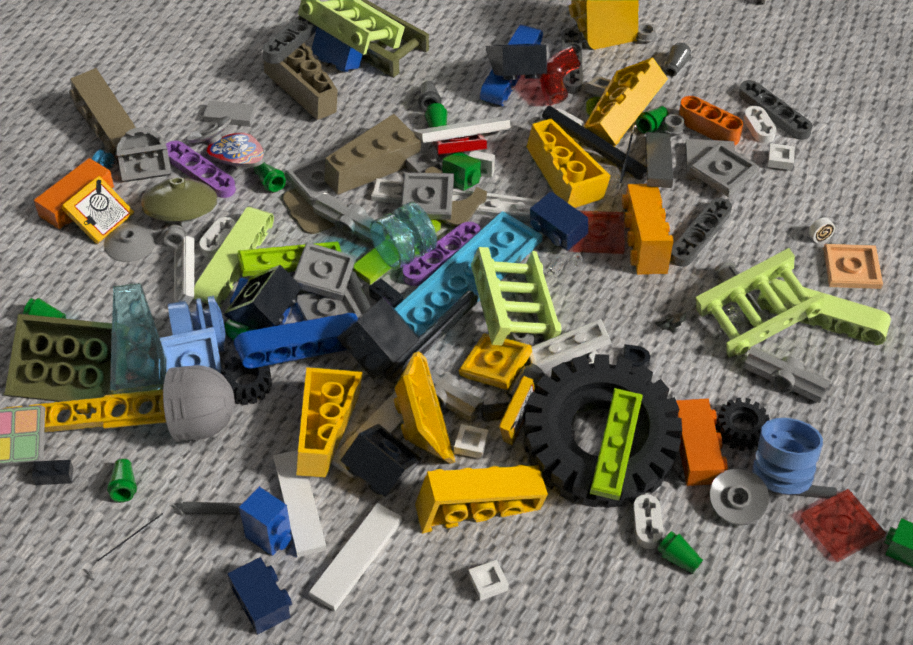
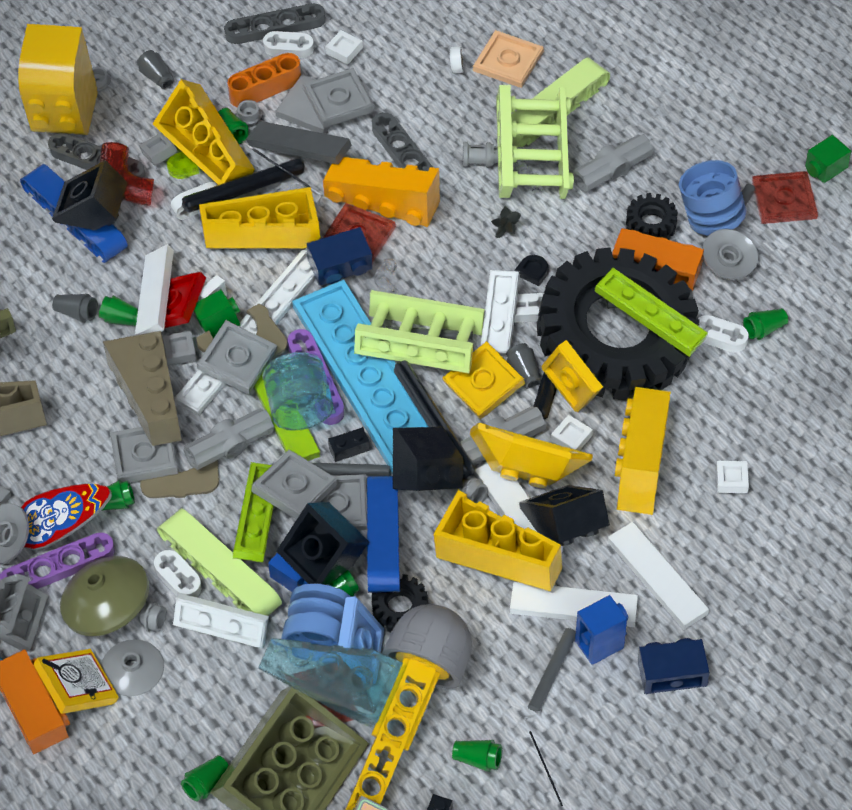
camera: 65 degrees left, 5 degrees up
(378, 392) = (475, 490): none -> light grey plate

